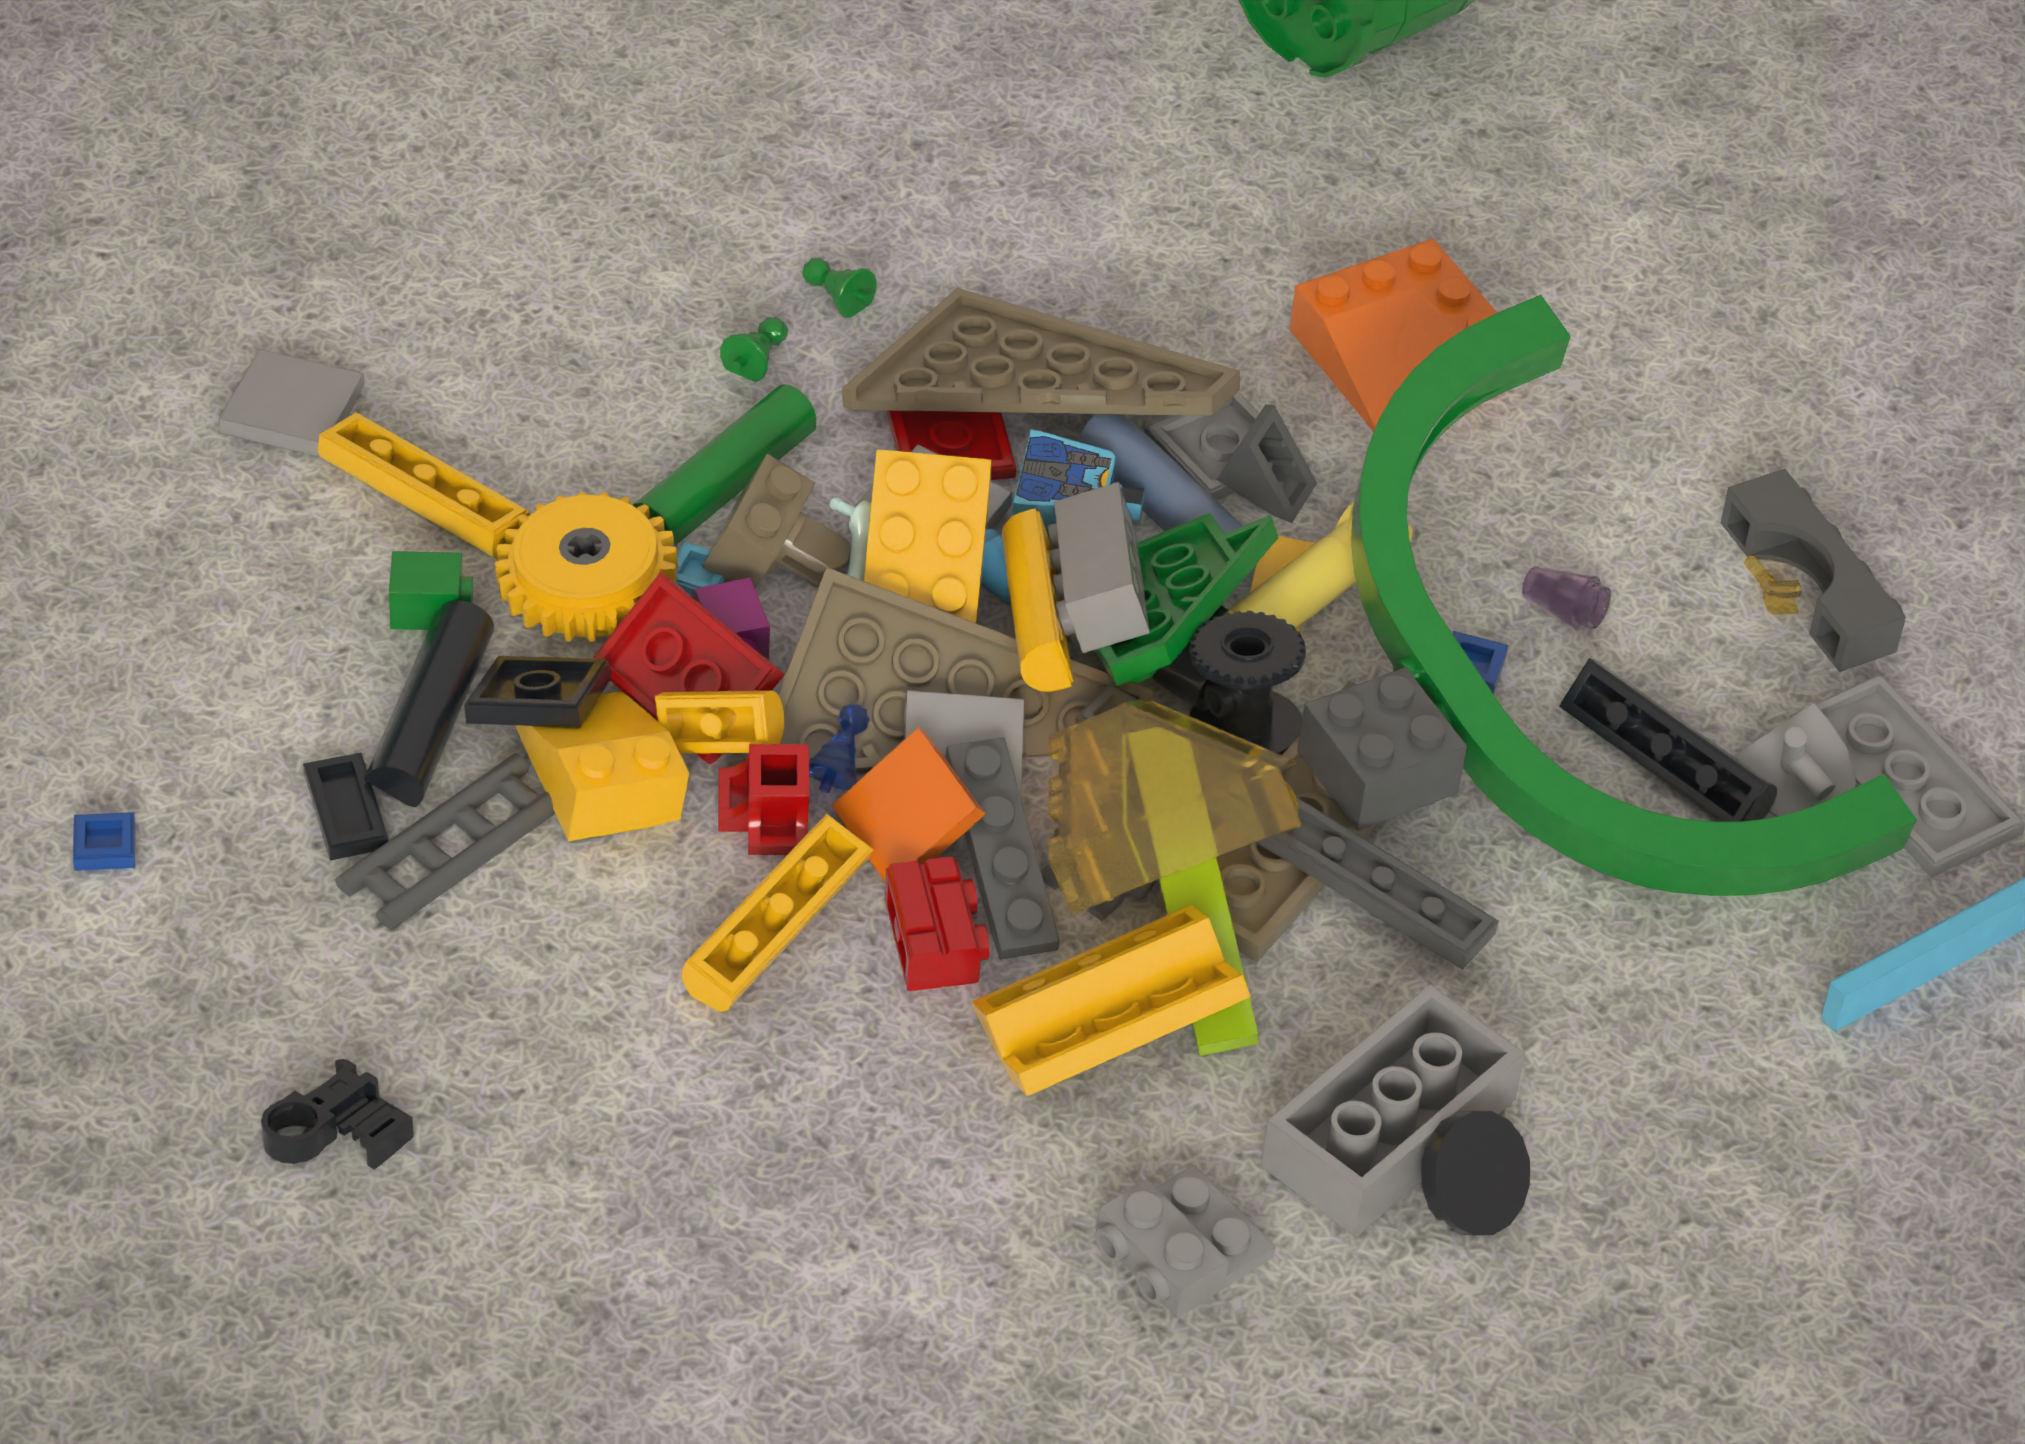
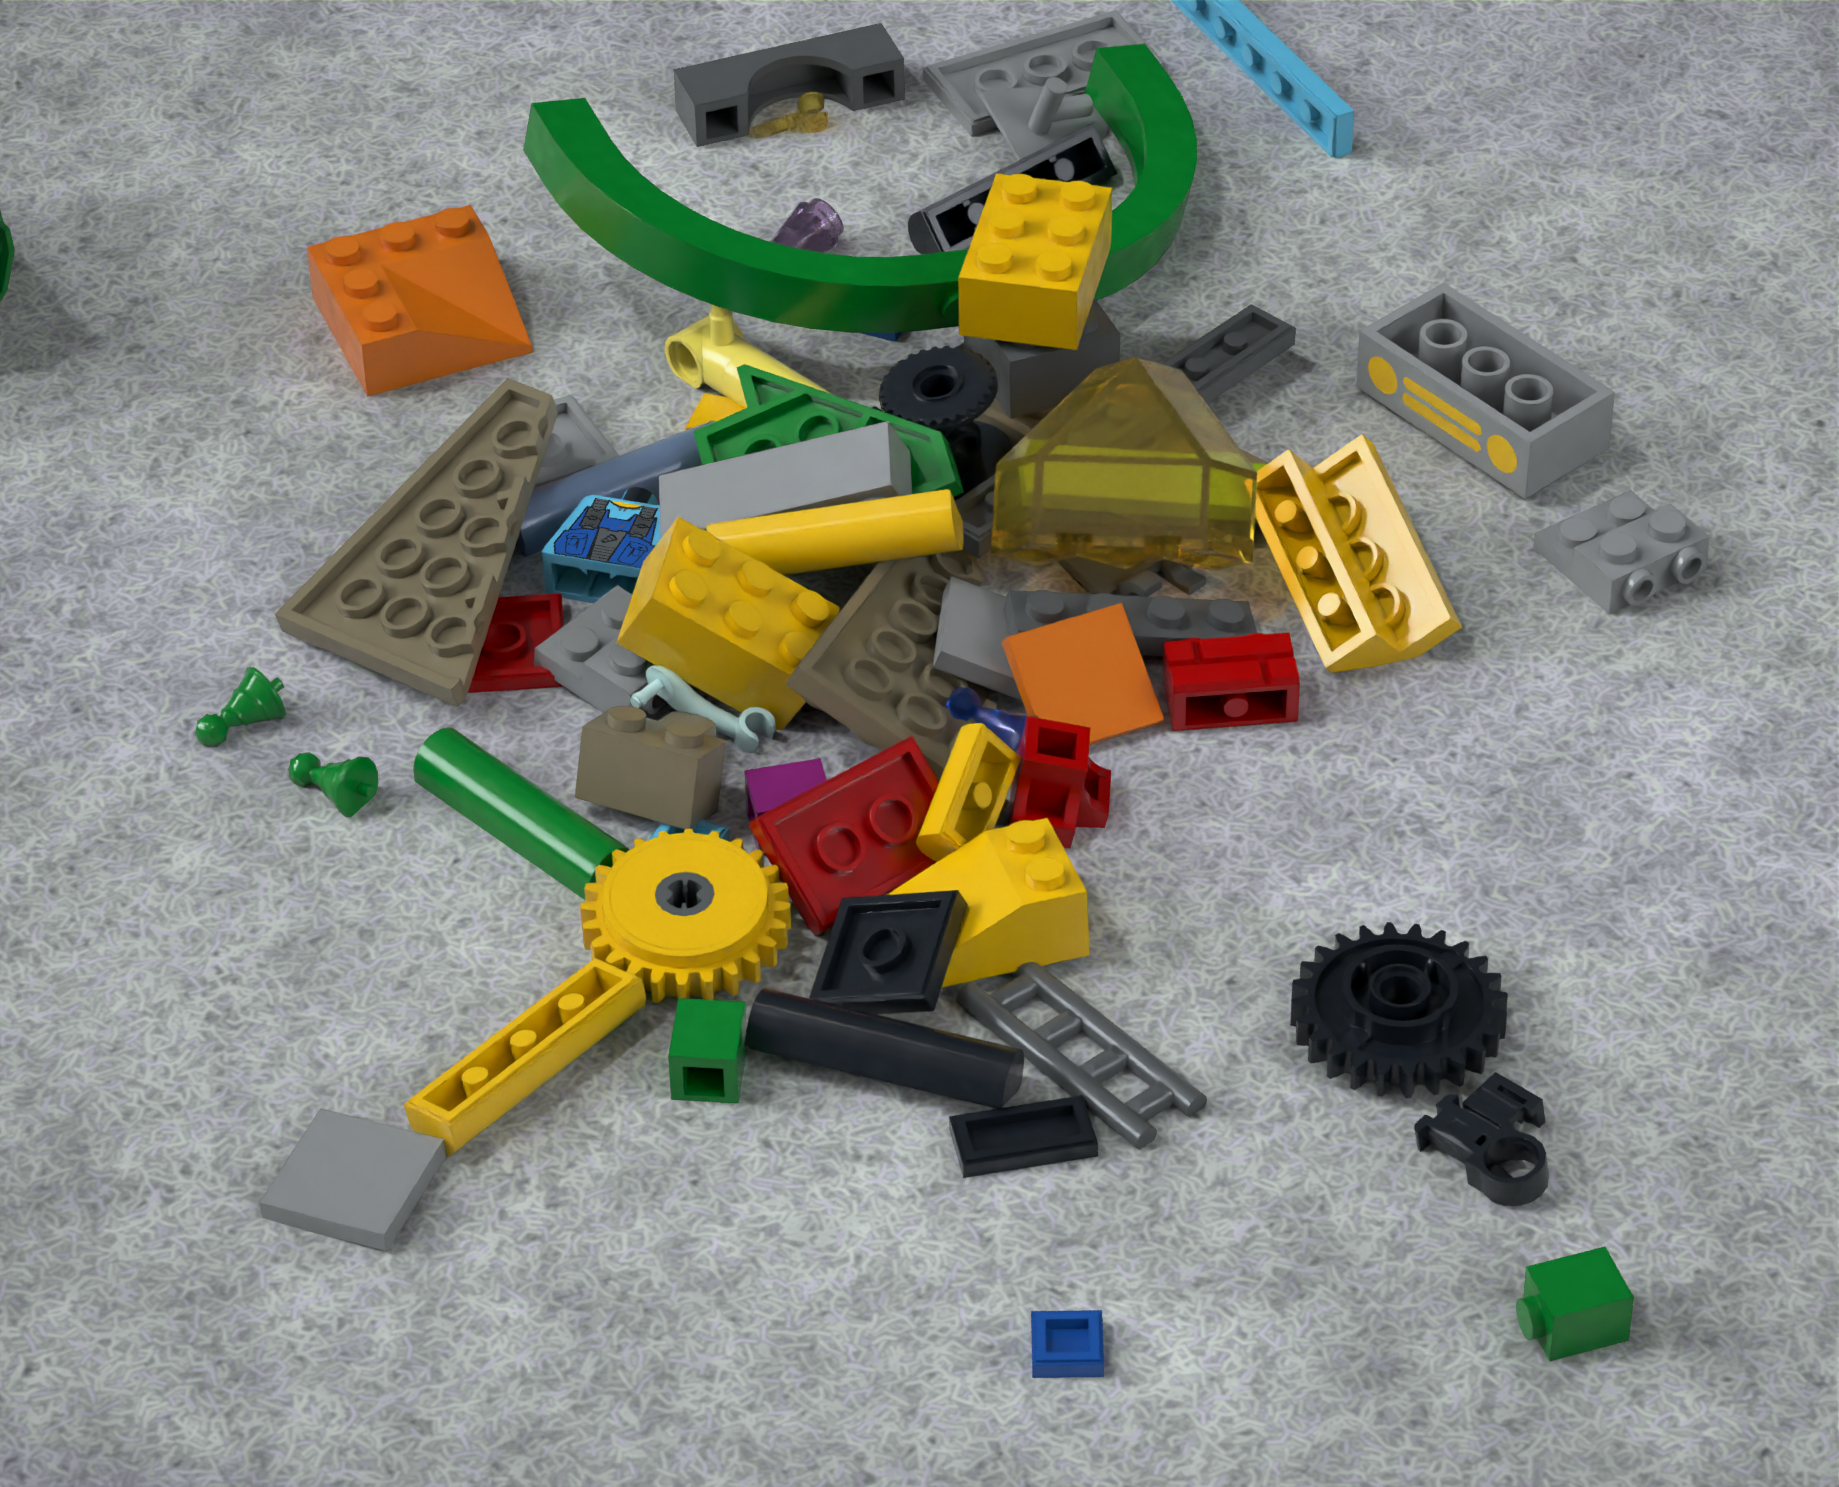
camera: 80 degrees left, 5 degrees down
(122, 1168) = (1575, 1304): none -> green brick
(492, 1049) = (1398, 1010): none -> black gear
(774, 914) = (1213, 793): yellow brick -> none
(1270, 468) = (607, 398): dark grey slope -> none
(1415, 688) = (1035, 261): none -> yellow brick
(1476, 1173) = (1561, 343): black tile -> none

